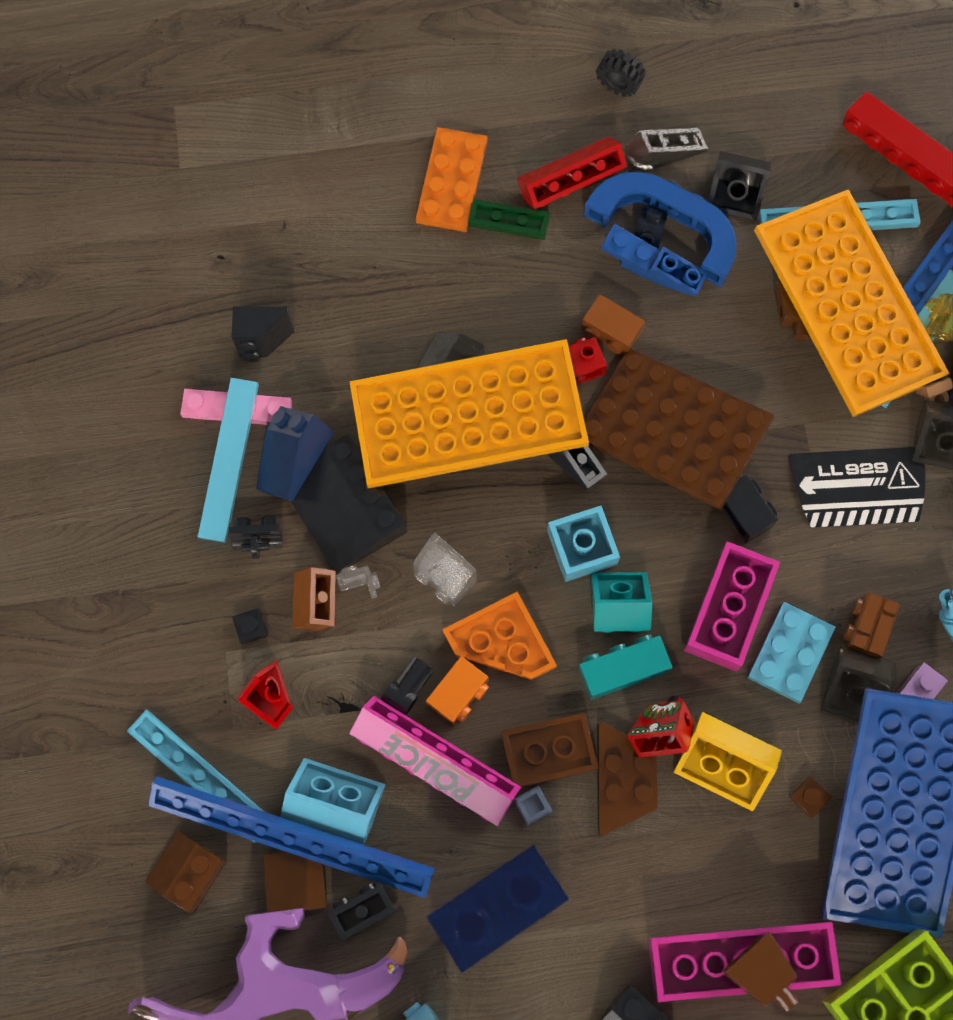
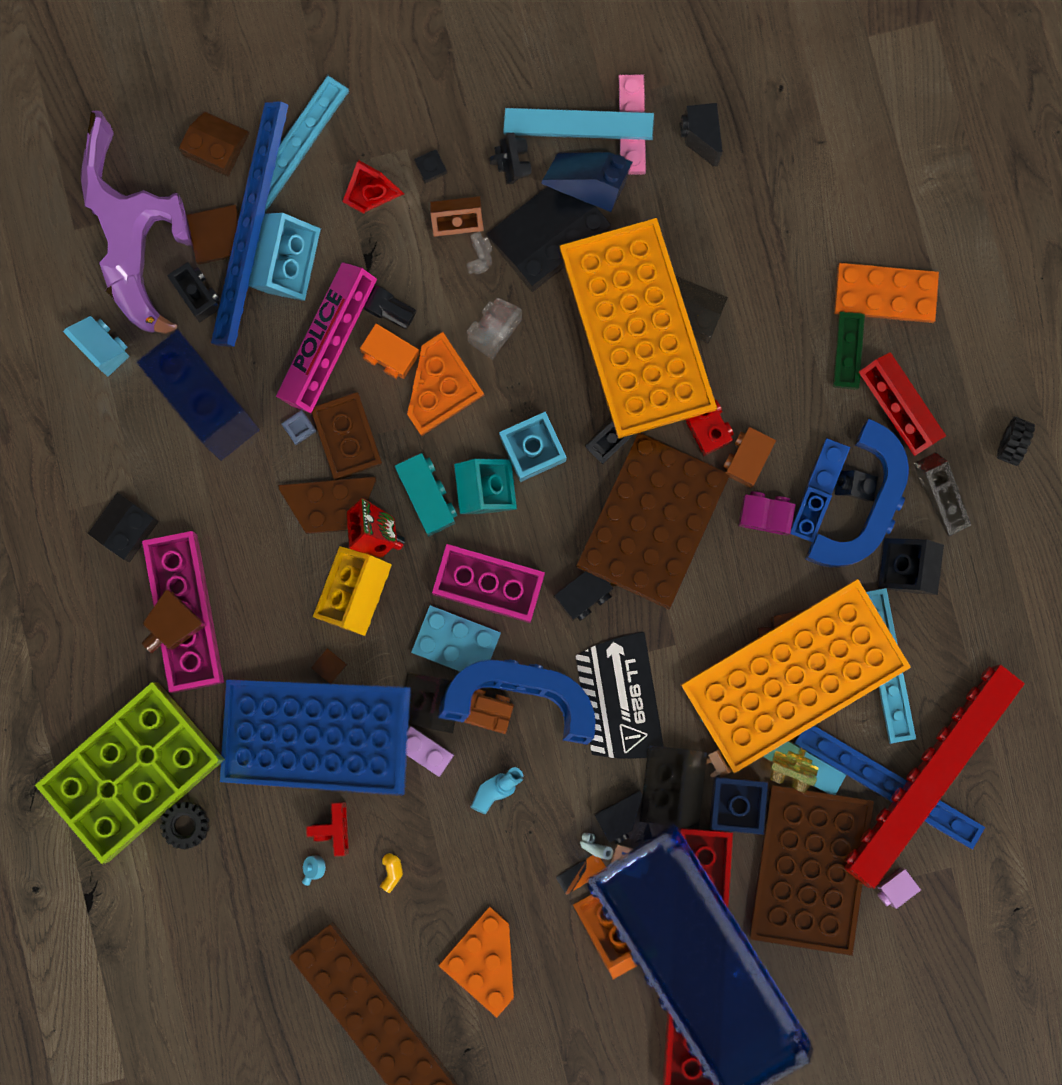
camera: 80 degrees right, 10 degrees up
(674, 316) = (767, 514): none -> magenta brick
(869, 529) = (531, 680): none -> blue arch

